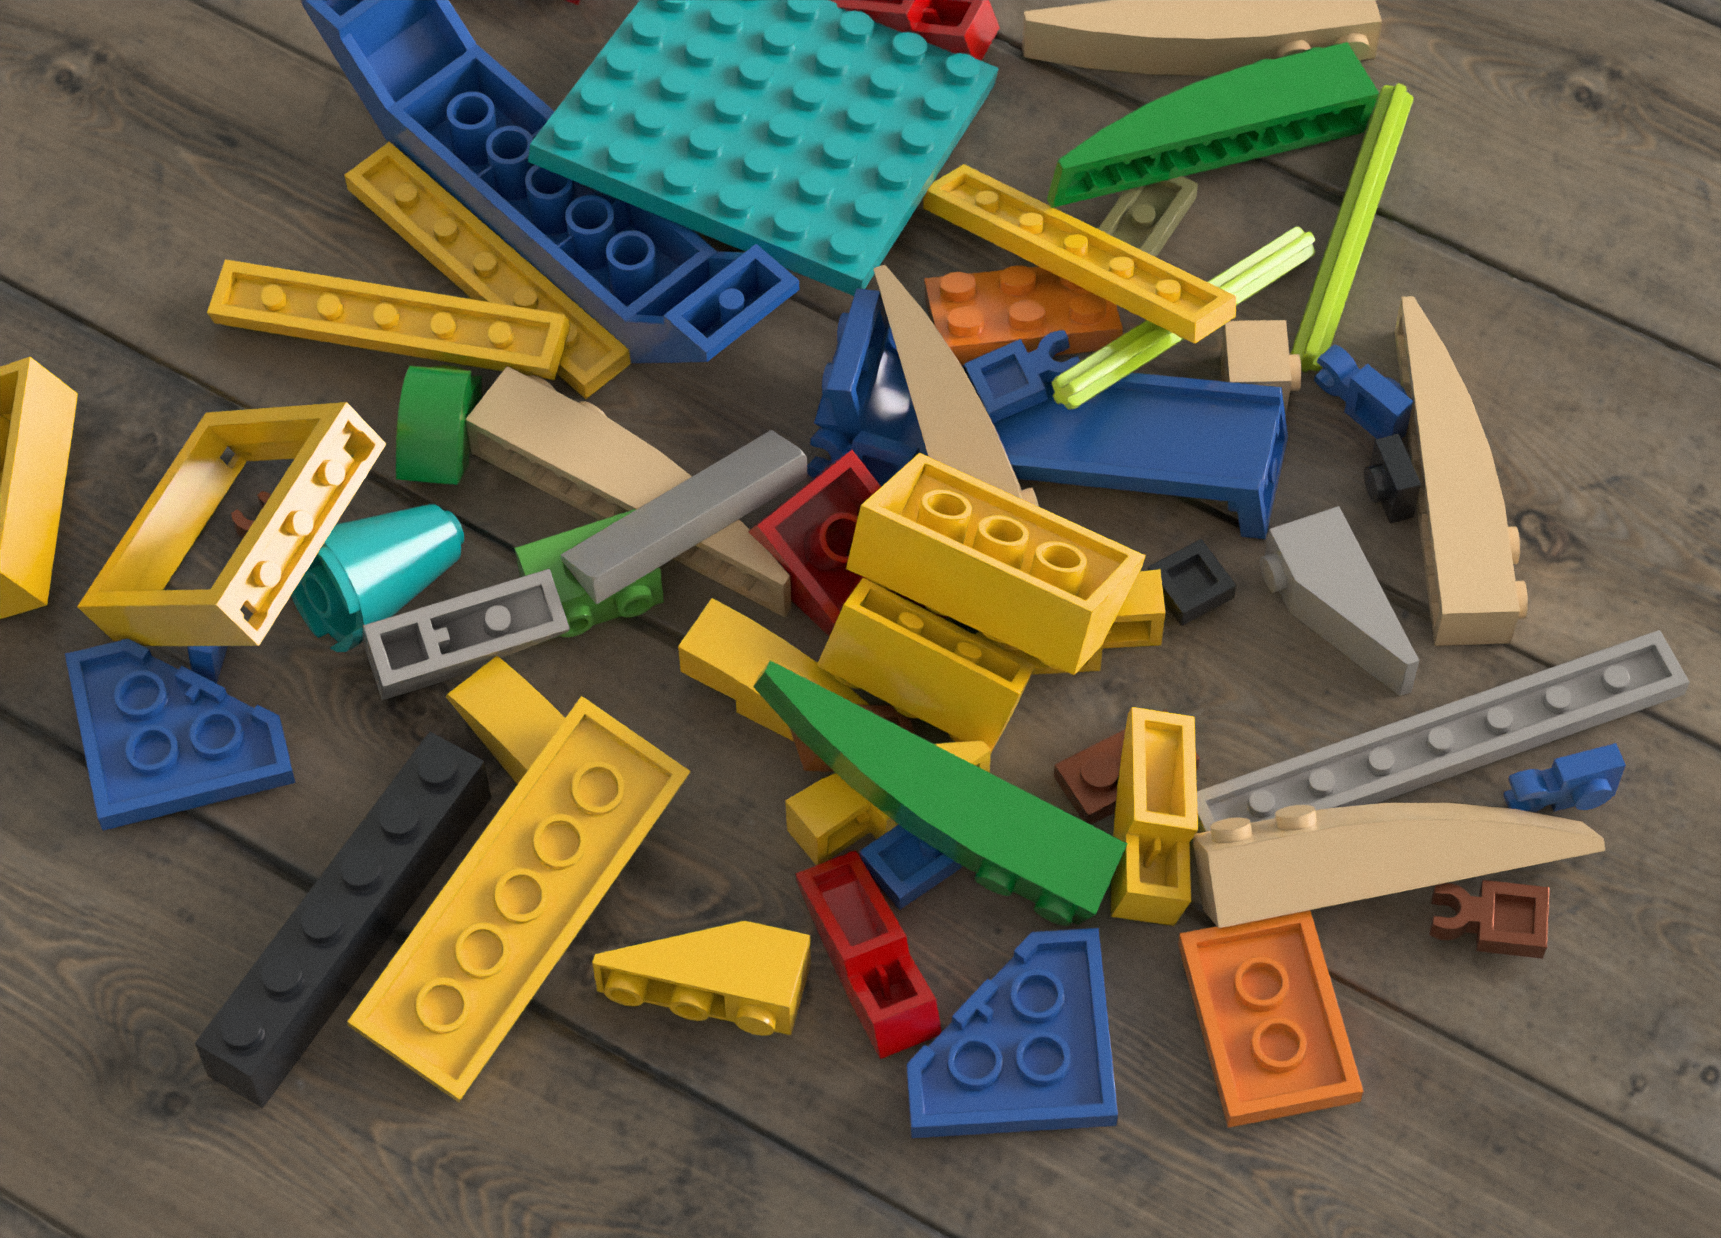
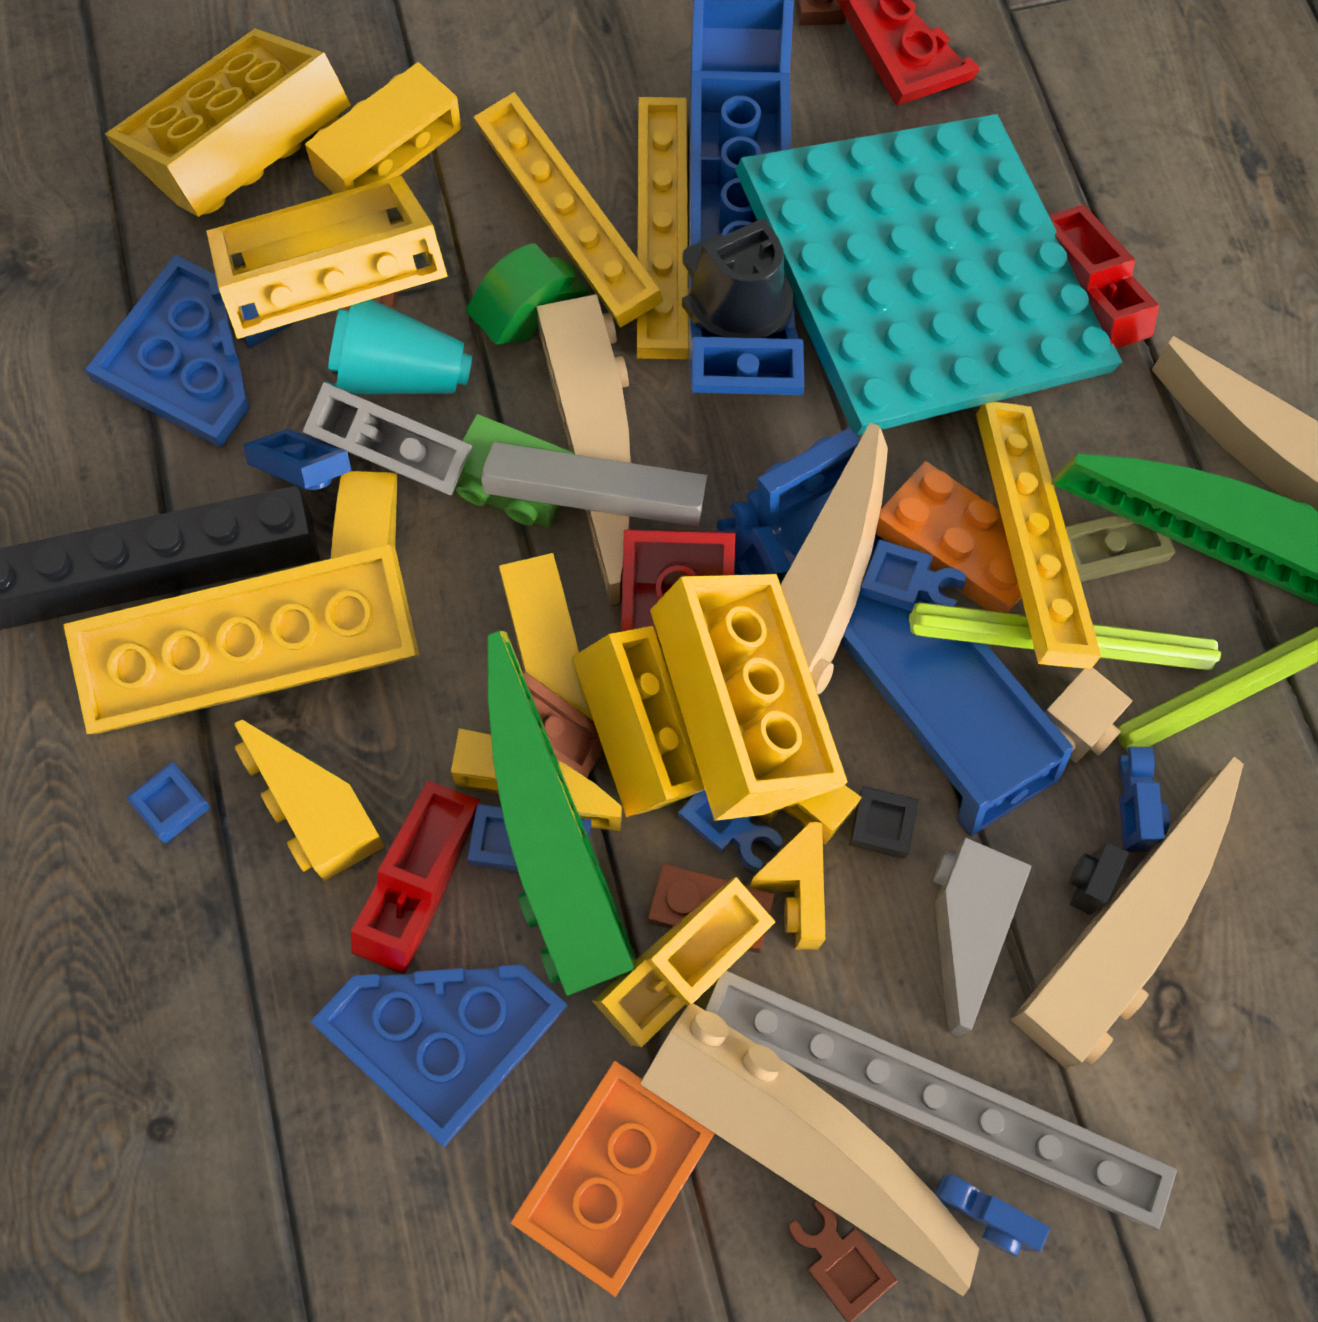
camera: 40 degrees right, 10 degrees up
(138, 394) = (385, 132): none -> yellow brick
(393, 719) = (297, 458): none -> blue plate
(589, 1092) = (168, 802): none -> blue tile
(648, 249) = (739, 284): none -> black container
(1062, 698) = (721, 833): none -> blue plate
(1177, 674) = (799, 870): none -> yellow slope

